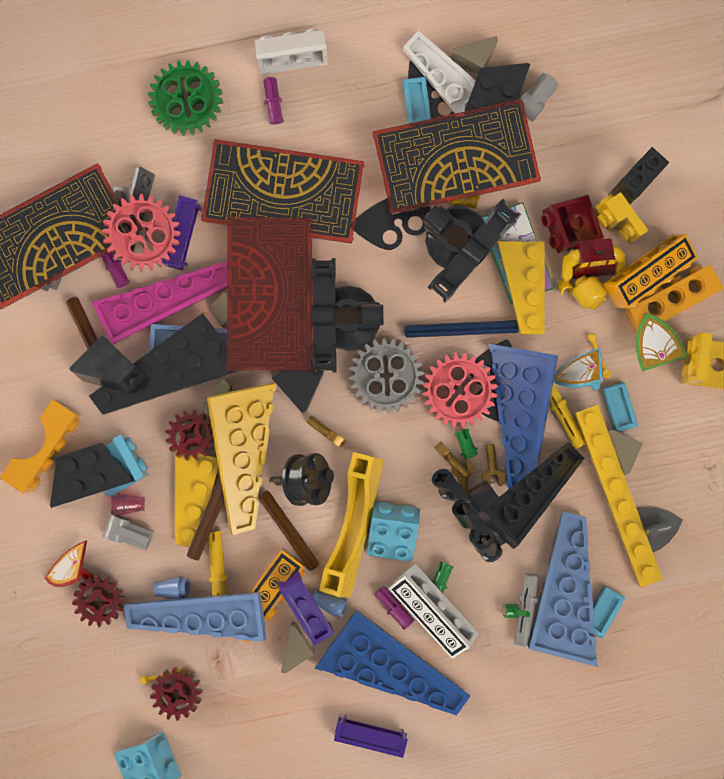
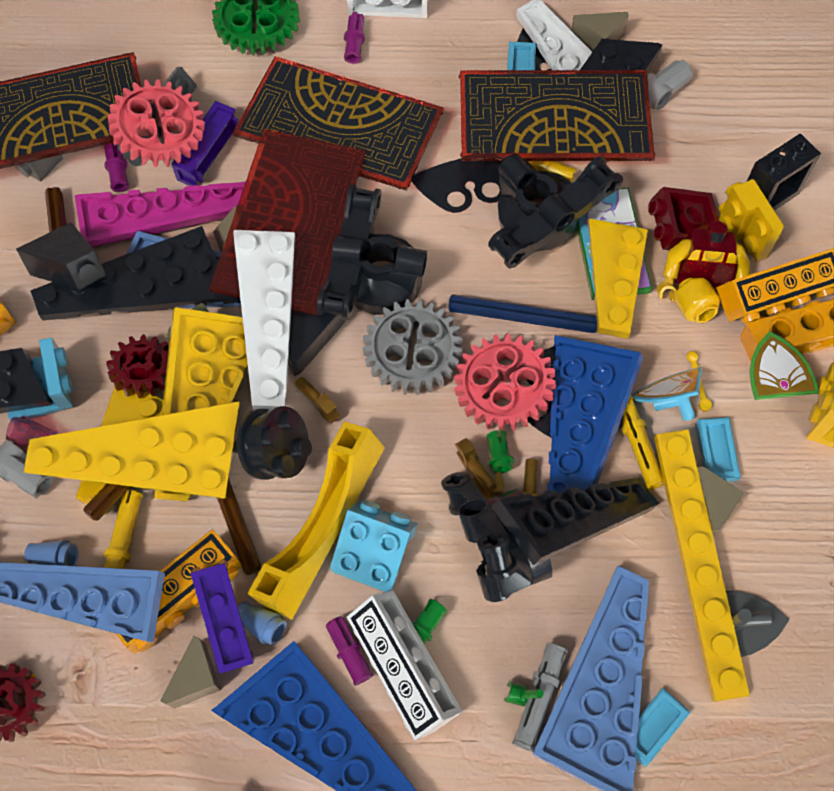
camera: 15 degrees right, 20 degrees down
(229, 505) = (163, 453): none -> yellow wing
(270, 363) = (265, 289): none -> white wing

